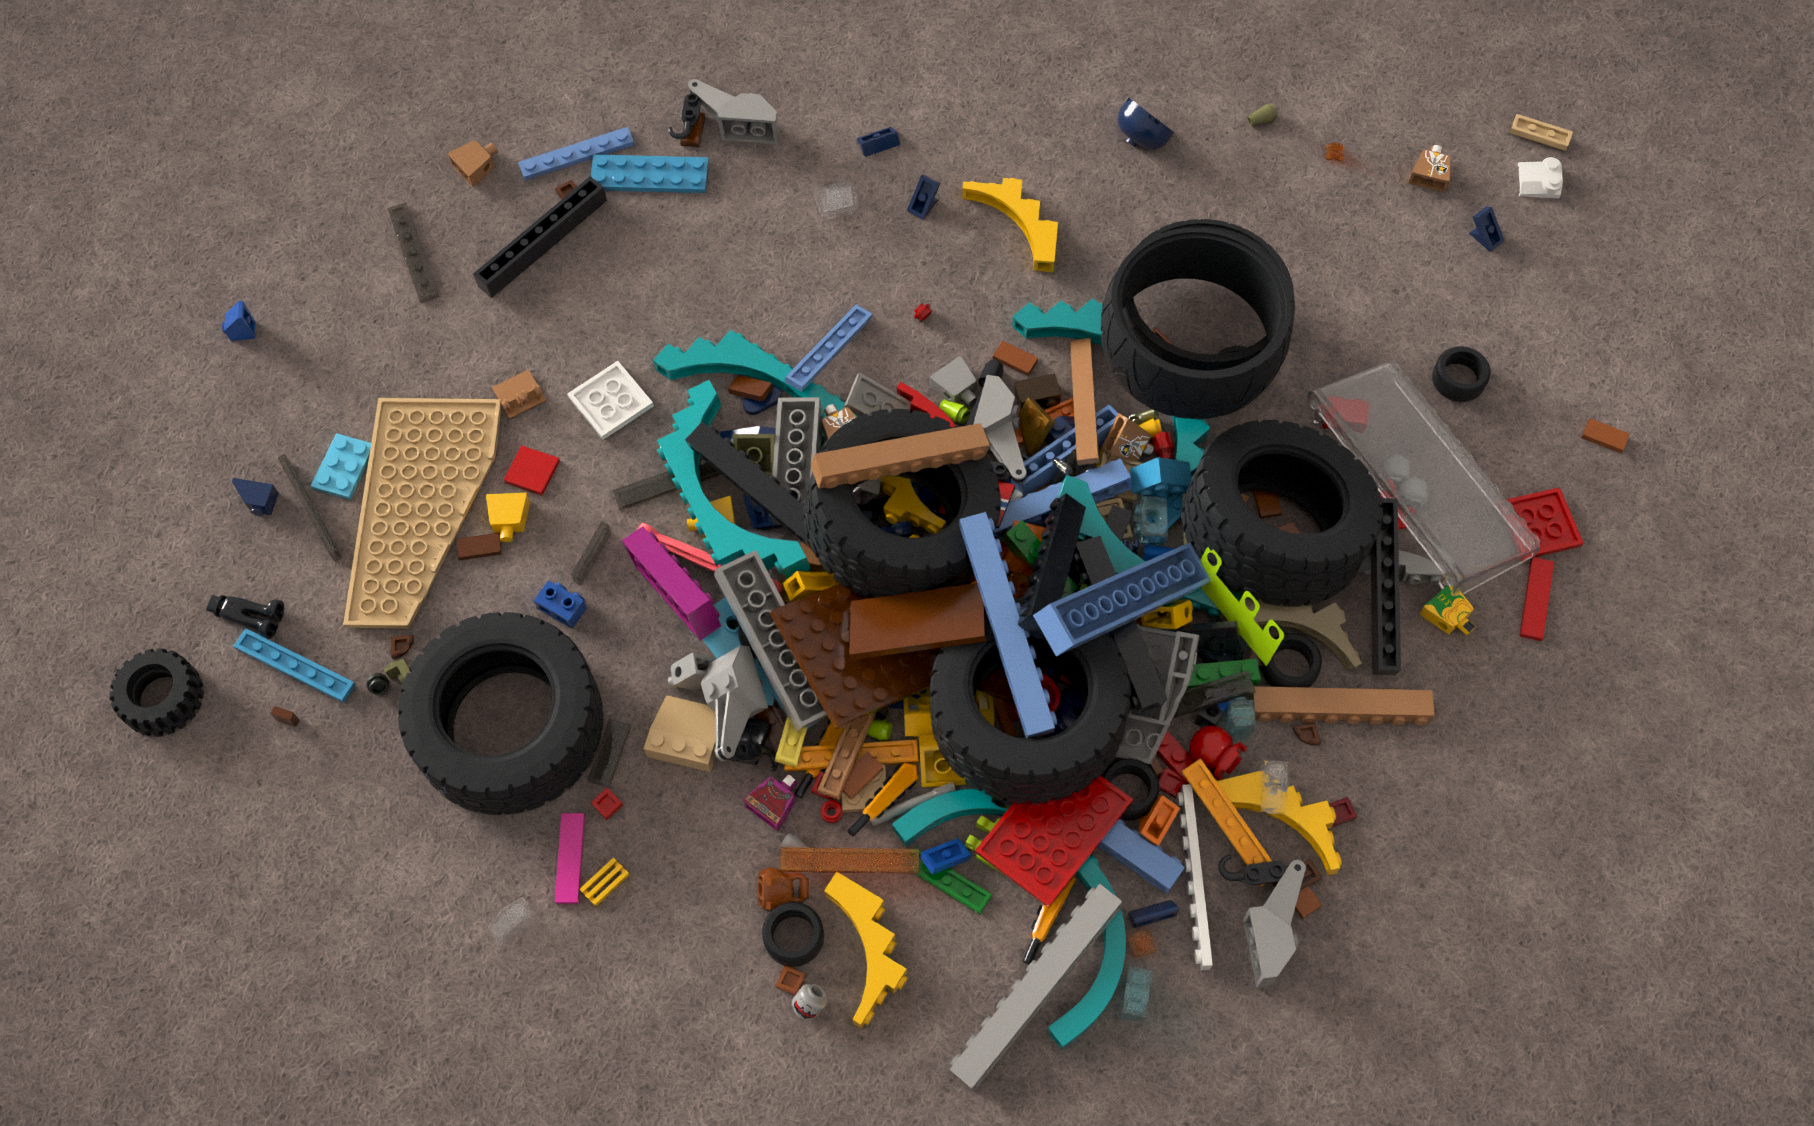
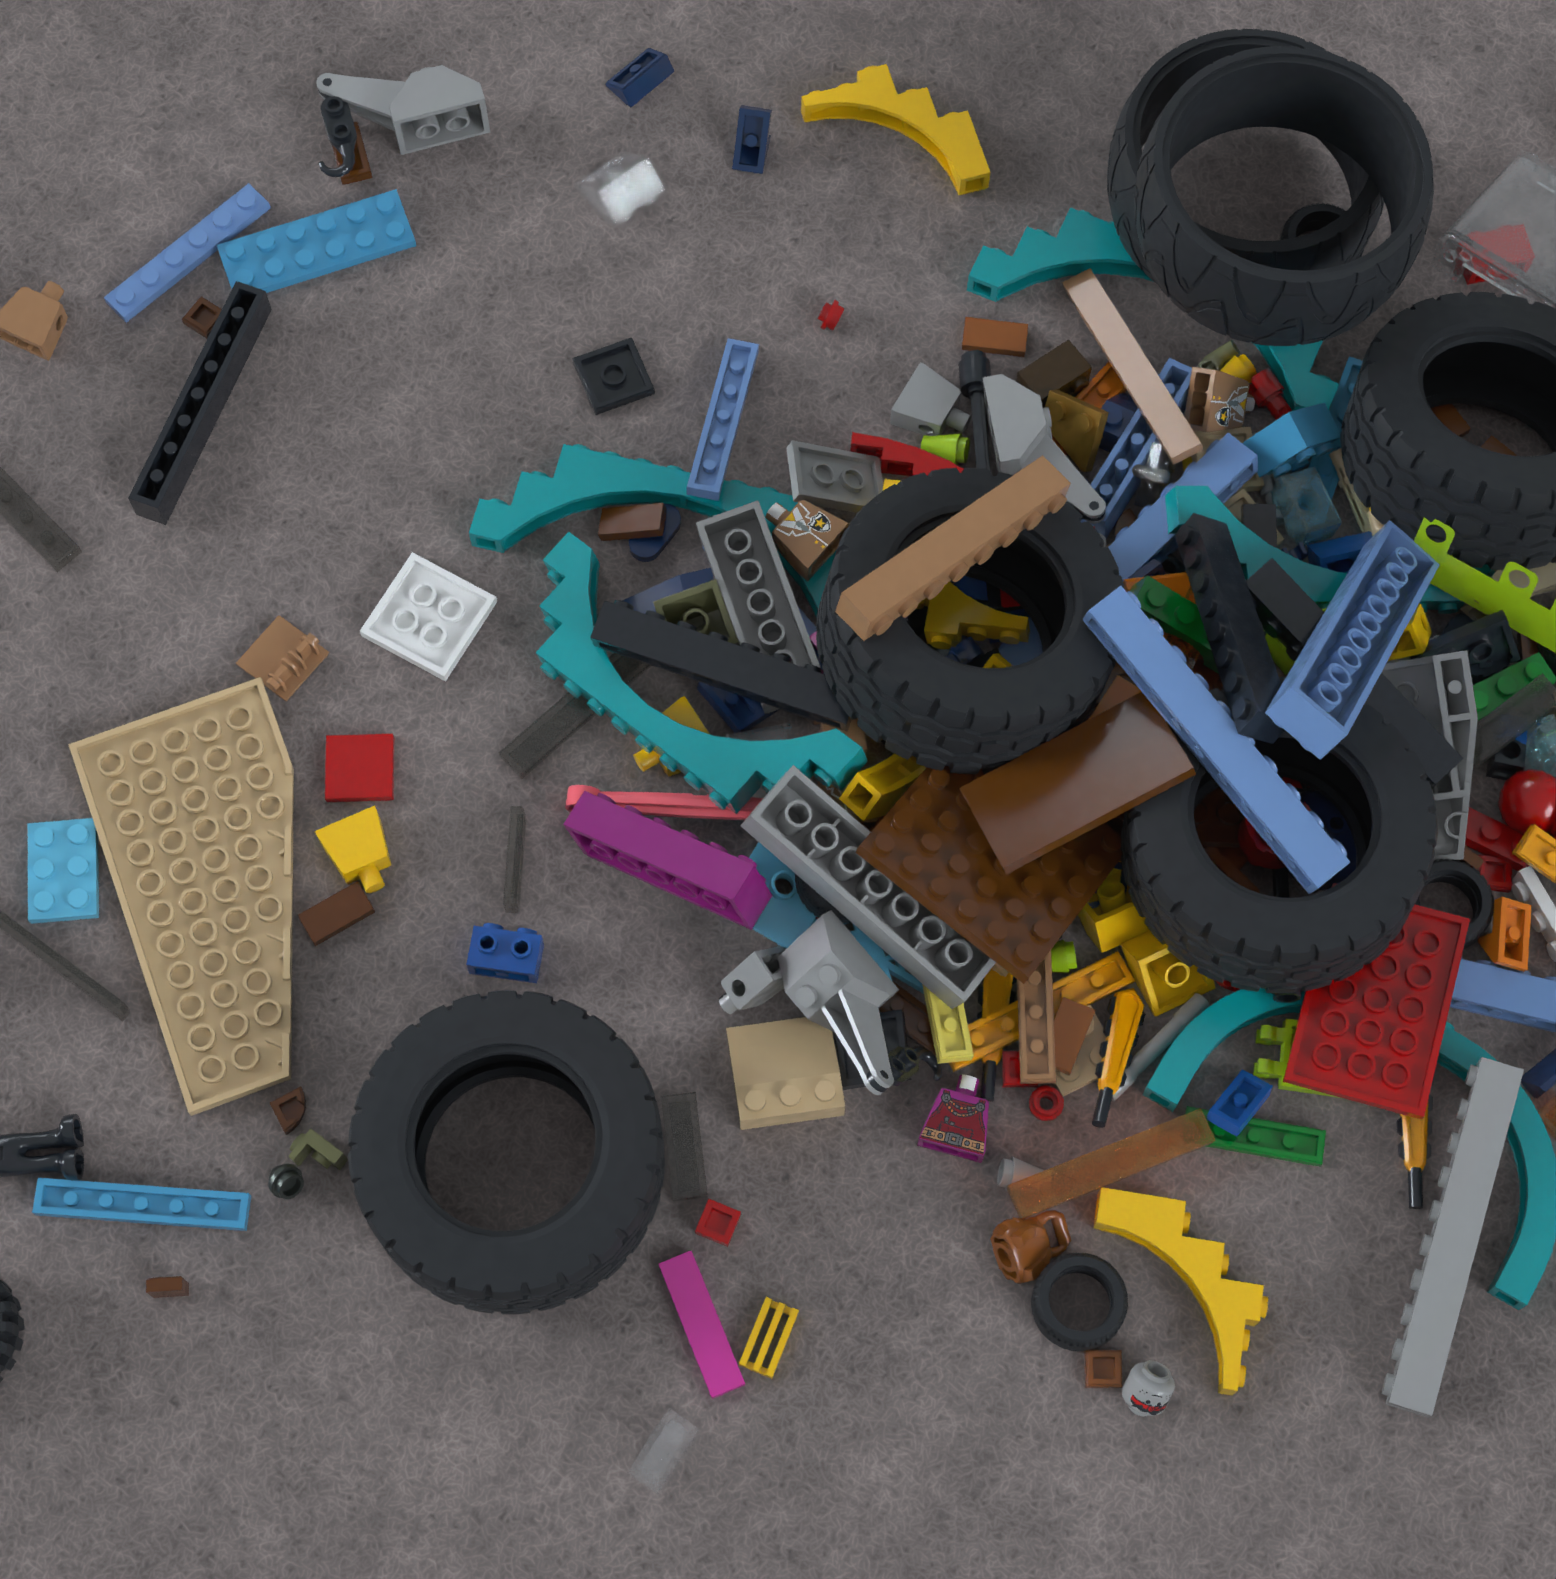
camera: 25 degrees left, 5 degrees up
(781, 303) = (613, 376): none -> black tile

